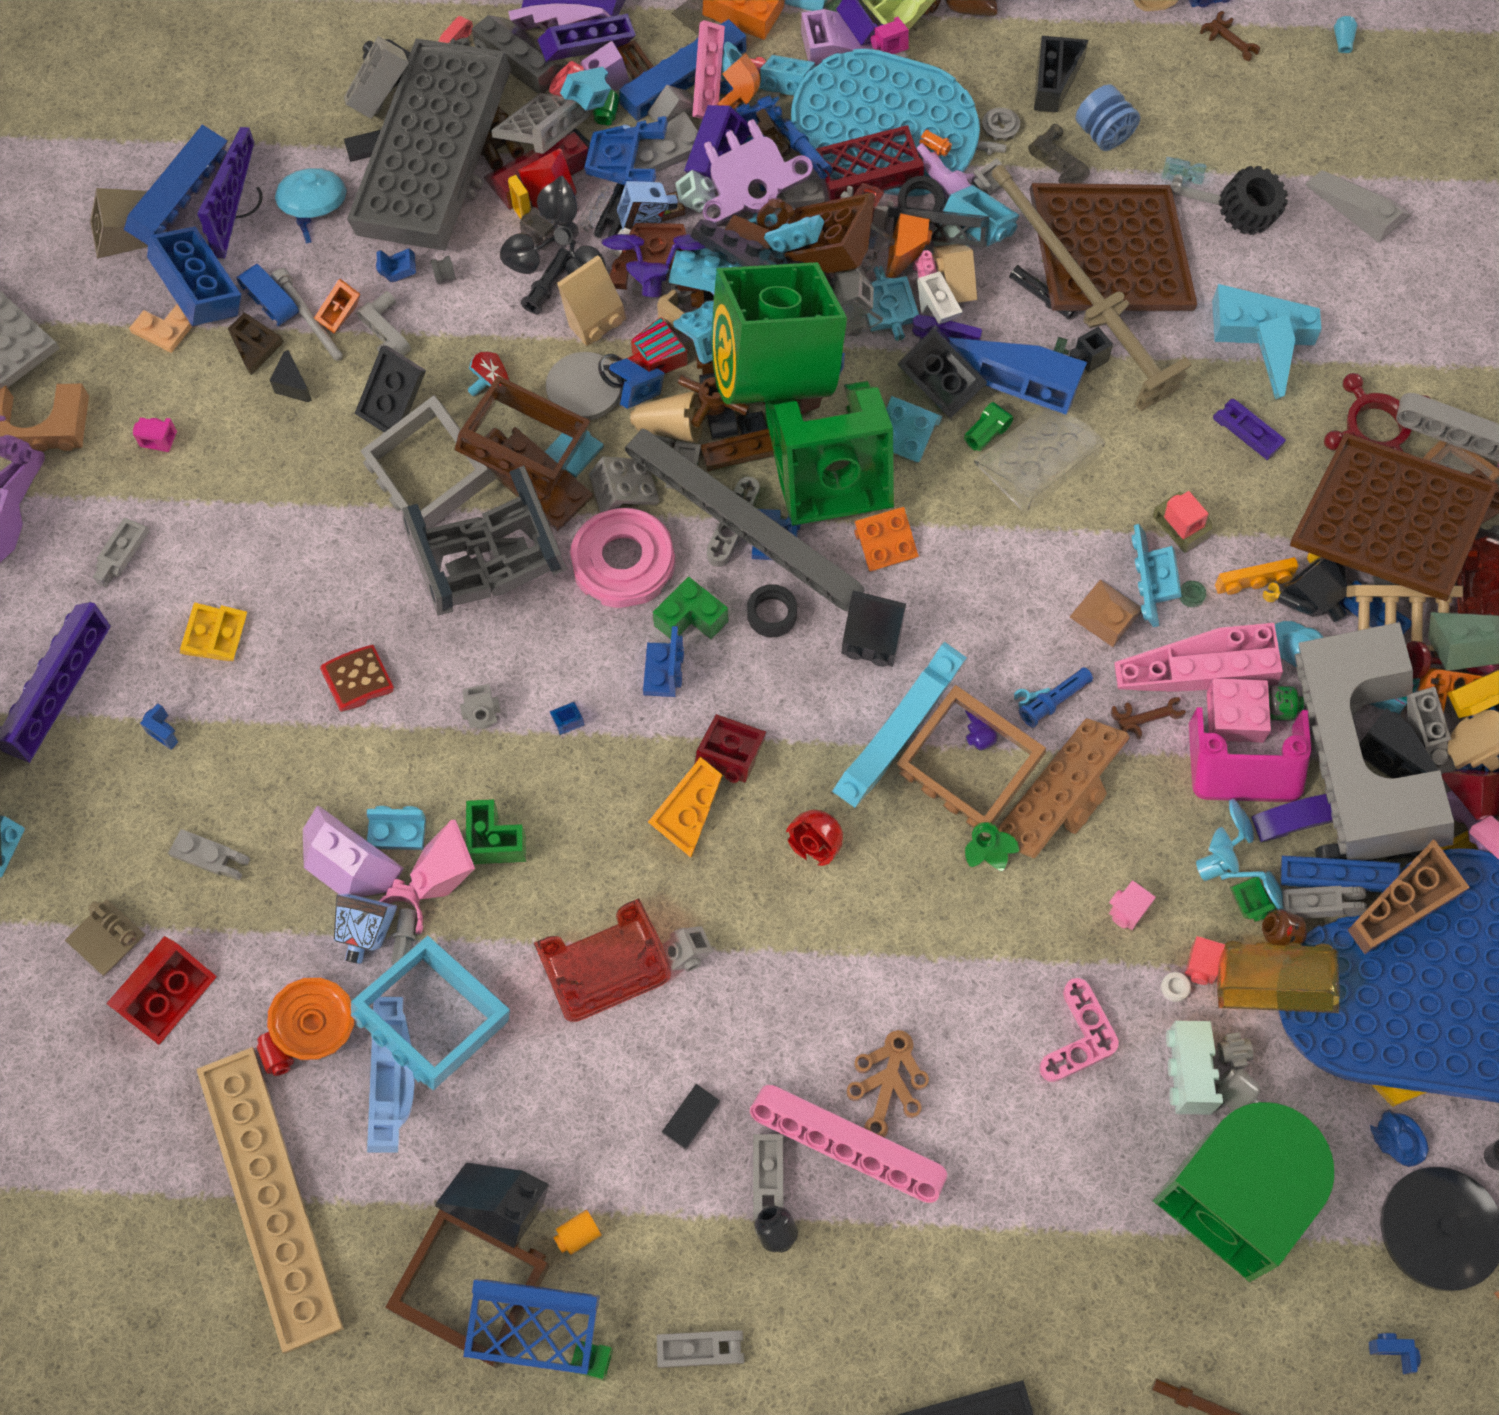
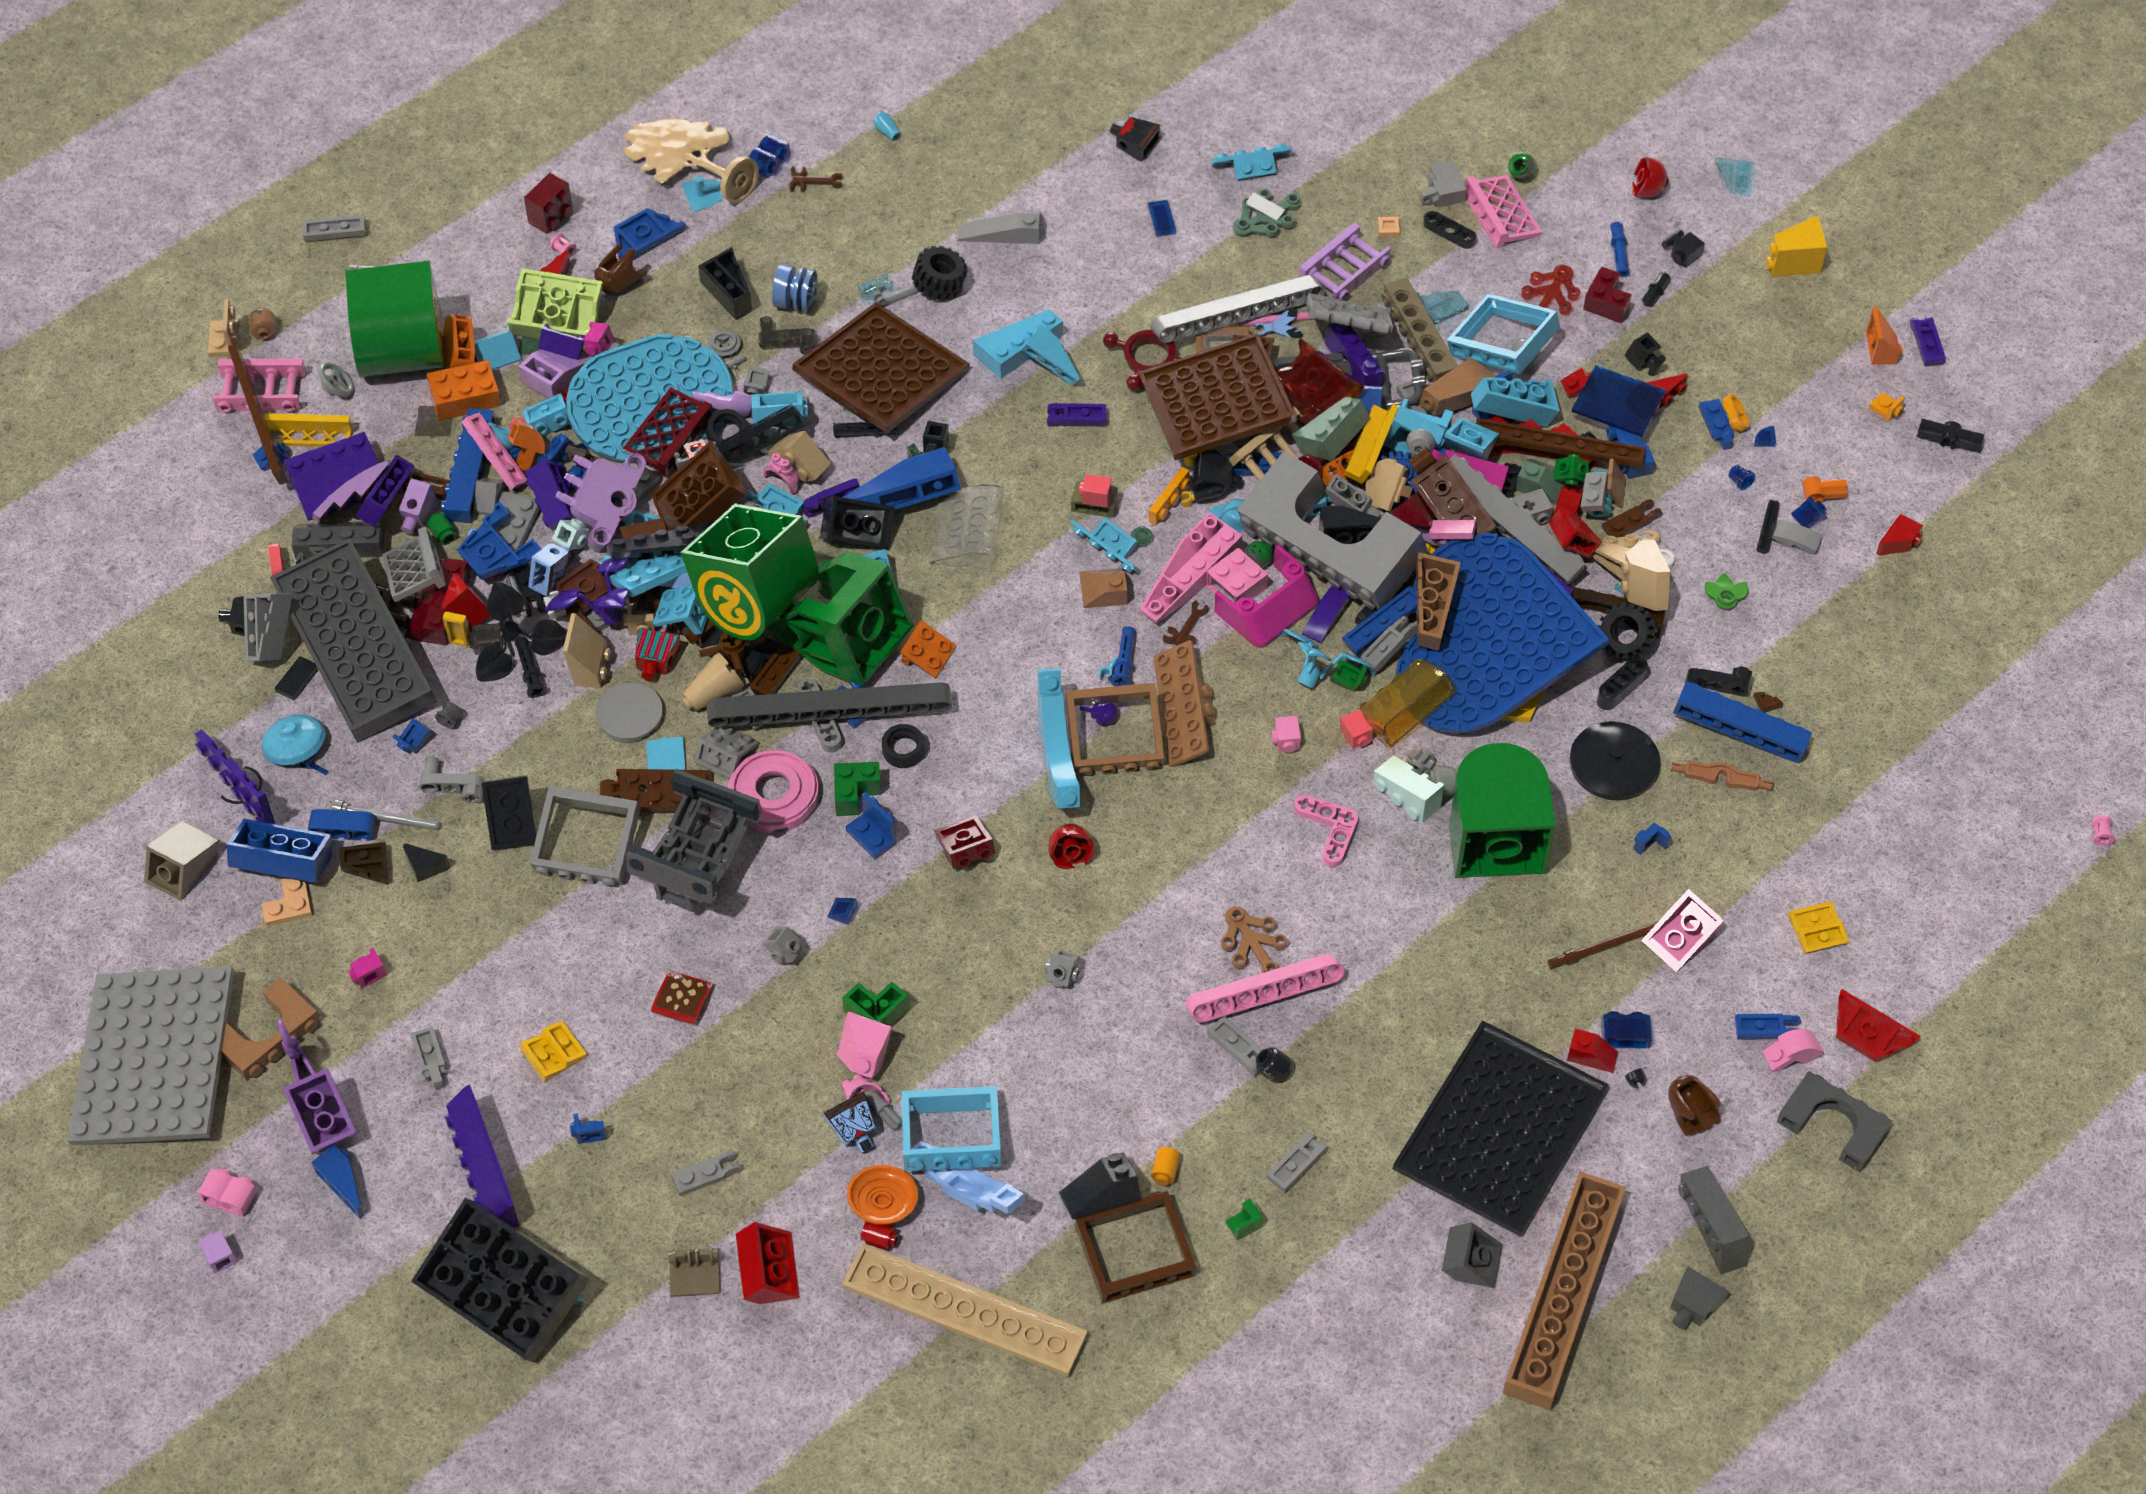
camera: 45 degrees left, 10 degrees down
(176, 185) = (197, 803): blue brick -> none
(338, 306) = (404, 791): orange slope -> none
(344, 858) = (794, 1099): lavender wedge -> none
(396, 828) = (808, 1057): medium azure bracket -> none
(487, 368) = (558, 754): red shield -> none
(504, 459) = (626, 743): reddish brown window -> none
(528, 1297) = (1180, 1209): blue fence -> none
(559, 79) = (397, 530): coral beam -> none
(587, 88) = (428, 521): medium azure brick -> none
(605, 965) = (1025, 1015): clear red windscreen -> none
(638, 383) = (672, 674): blue piece -> none
(688, 806) = (976, 895): light orange wing -> none
(690, 1117) = (1161, 1055): black tile -> none
(786, 213) = (650, 500): reddish brown piece -> none
(795, 234) = (679, 506): medium azure bracket -> none
(800, 143) = (609, 451): blue pin -> none
(873, 629) = (981, 701): black slope -> none
(910, 238) = (753, 454): orange slope -> none
(936, 143) = (701, 385): orange pin -> none
(937, 298) = (806, 478): white slope -> none
(991, 849) = (1178, 769): green plate -> none
(992, 421) = (918, 531): green piece -> none
(1104, 311) = (921, 408): dark tan piece -> none
(1175, 987) = (1354, 758): white tile -> none
(1284, 928) = (1382, 673): reddish brown head -> none
(1401, 1138) = (1549, 732): blue hat -> none

